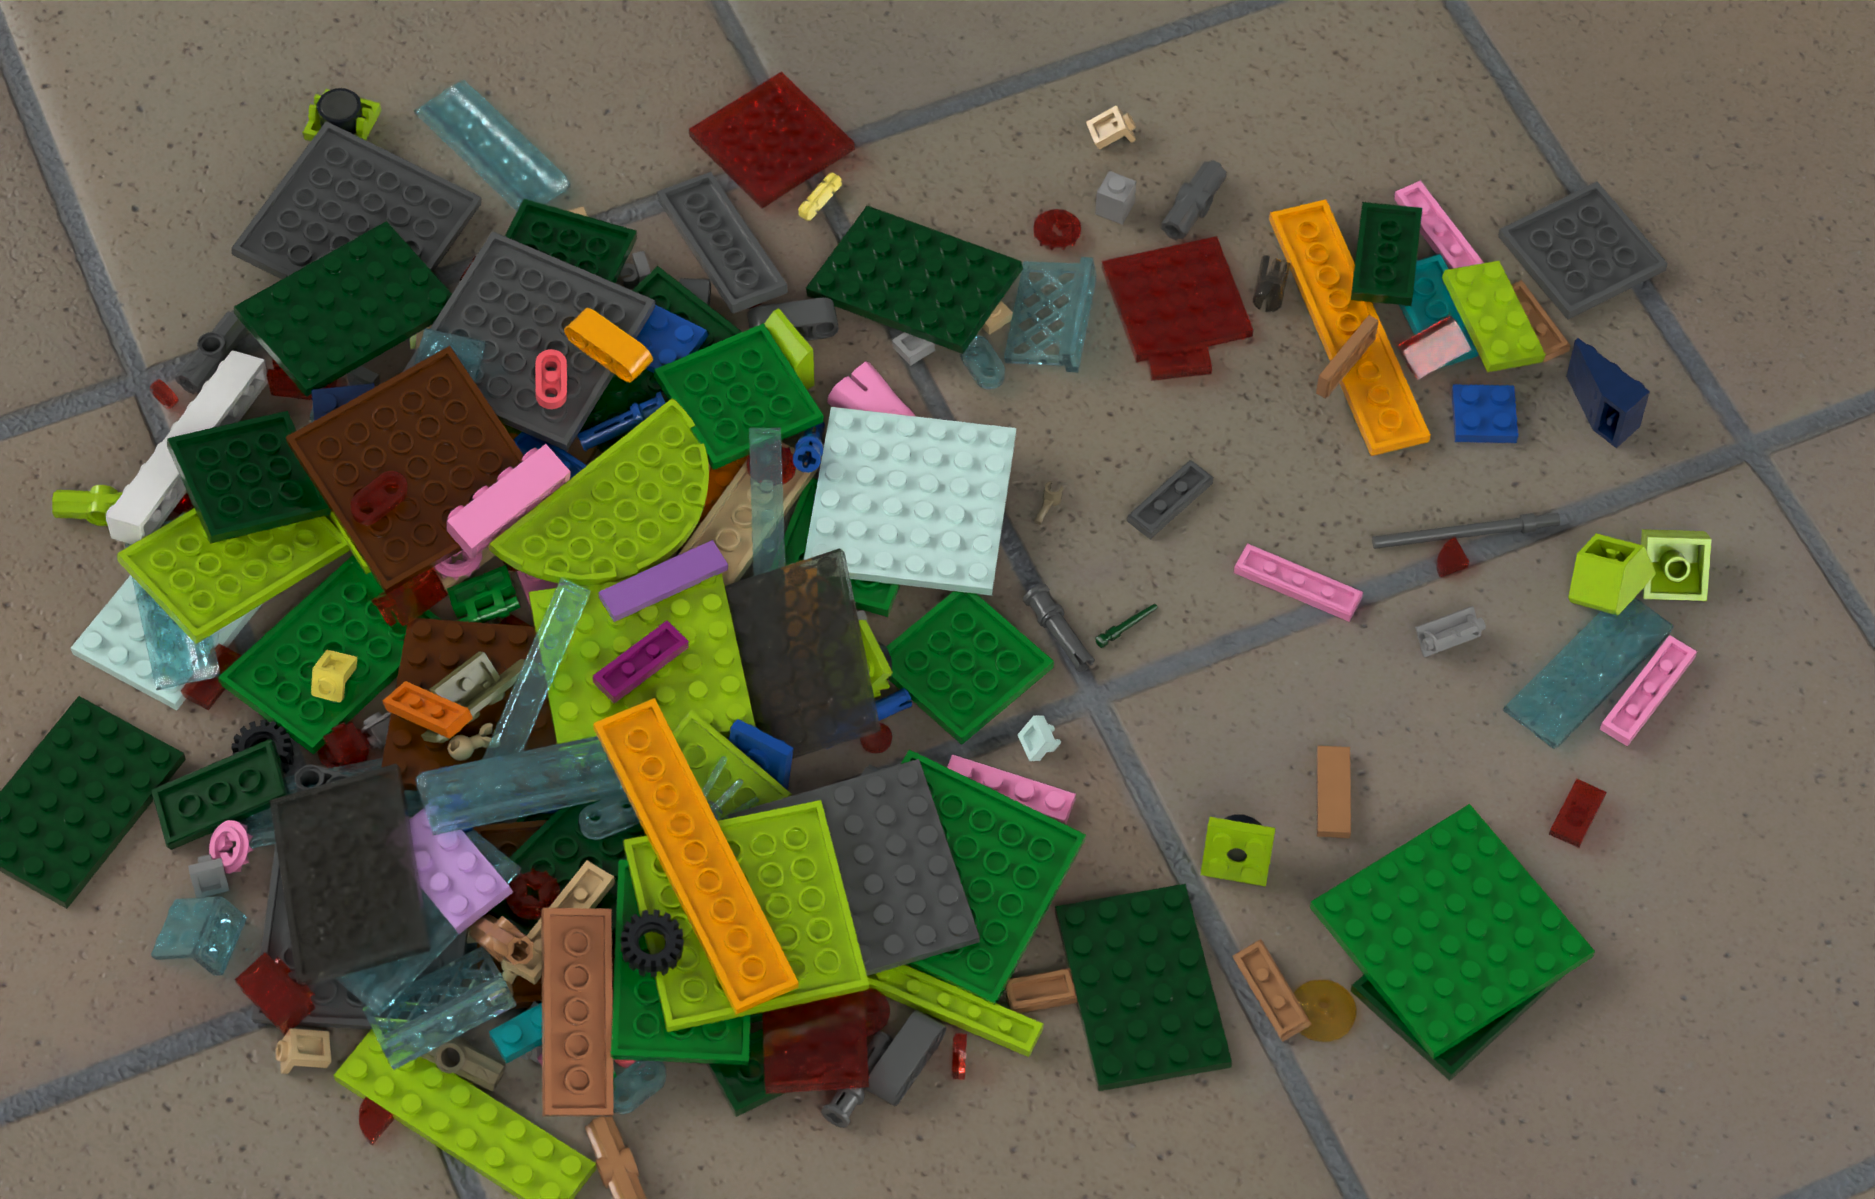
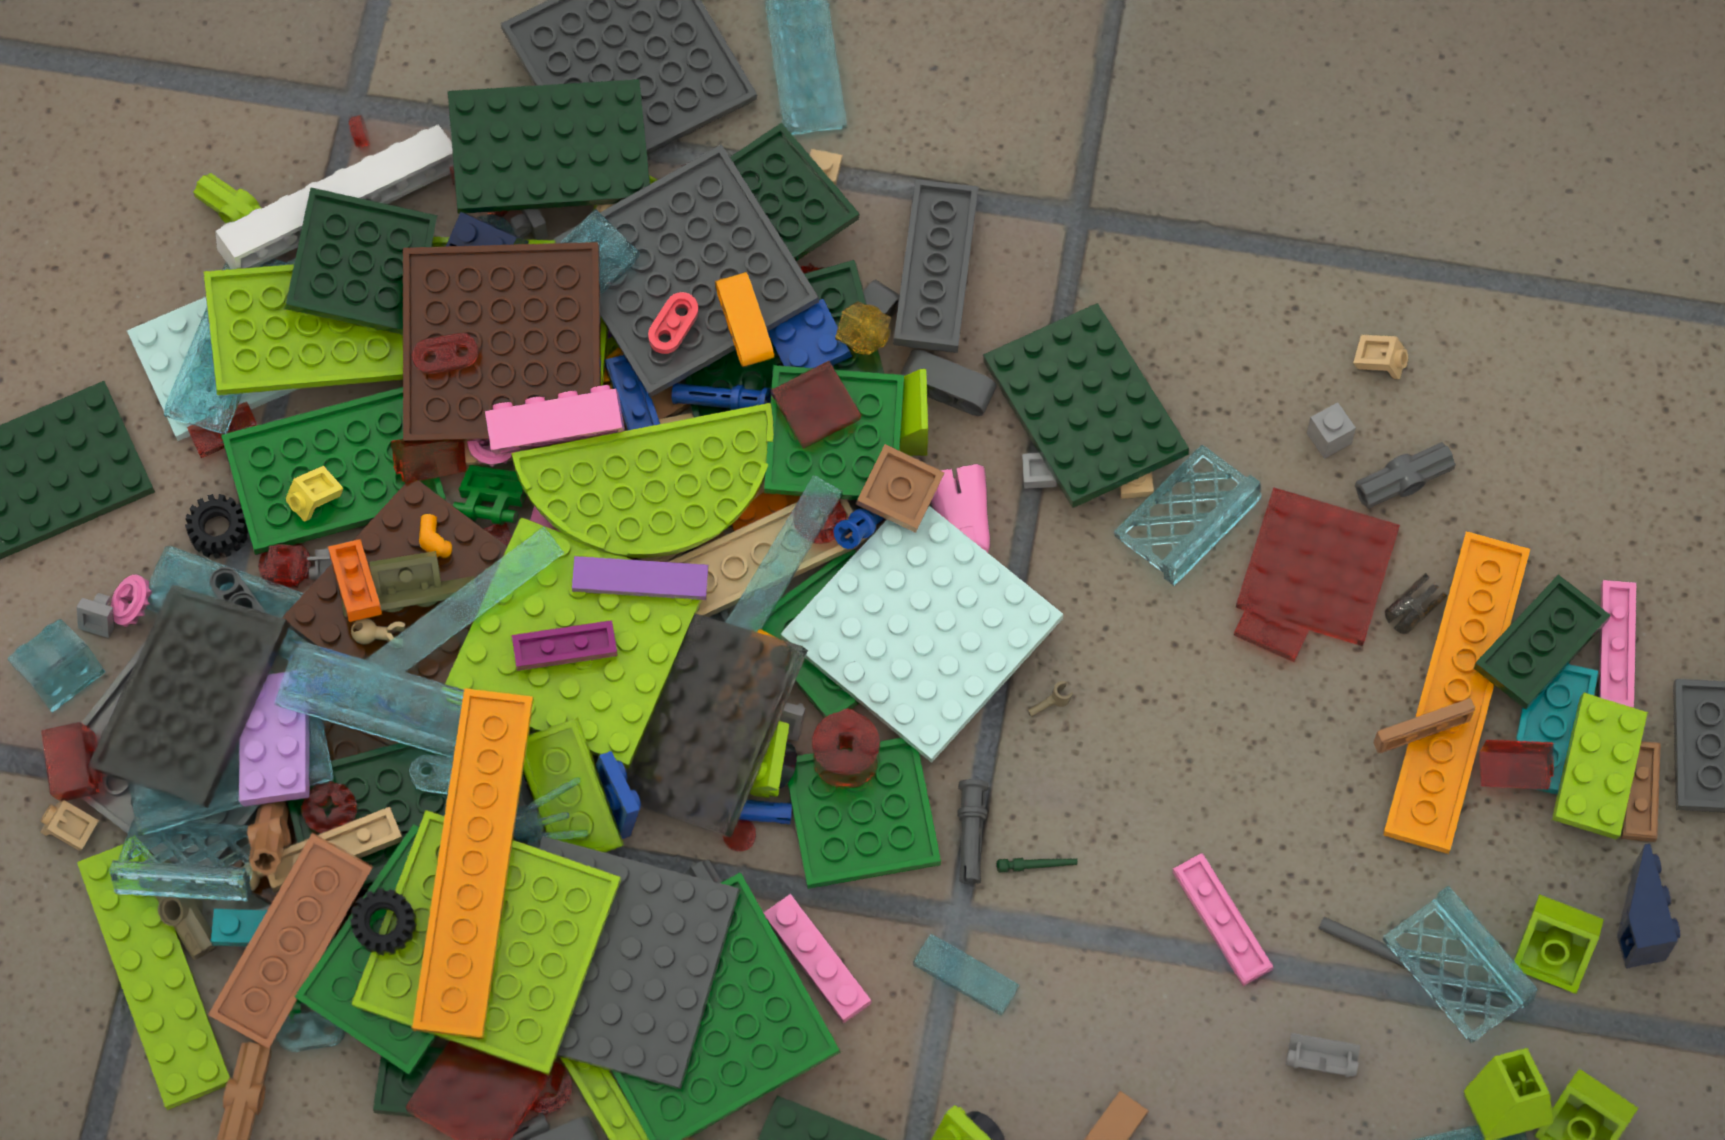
camera: 35 degrees right, 10 degrees up
(211, 350) = (409, 121): dark grey piece -> none
(219, 793) = (153, 546): dark green tile -> none
(373, 1120) = (82, 923): clear red tile -> none
(463, 650) = (430, 540): none -> light orange arm
(637, 270) = (846, 250): light grey tile -> none
(708, 304) = (863, 328): none -> clear yellow brick
(712, 377) = (816, 404): none -> clear red plate
(771, 139) = (1058, 184): clear red plate -> none
(819, 196) = (1062, 268): light yellow axle -> none
(823, 403) = (900, 488): none -> medium nougat plate
(921, 617) = (848, 731): none -> clear red brick
(984, 364) = (1090, 527): clear light blue plate -> none
(1038, 738) = (874, 926): light aqua tile -> none
(1064, 221) = (1248, 418): clear red gear -> none
(1134, 734) = (966, 974): none -> clear light blue tile
(1170, 499) = (1165, 764): dark grey tile -> none
(1451, 558) = (1382, 983): clear red tile -> none
(1484, 413) = (1522, 857): blue plate -> none
(1507, 489) = (1486, 953): none -> clear light blue fence
(1558, 455) = (1558, 943): none -> lime slope

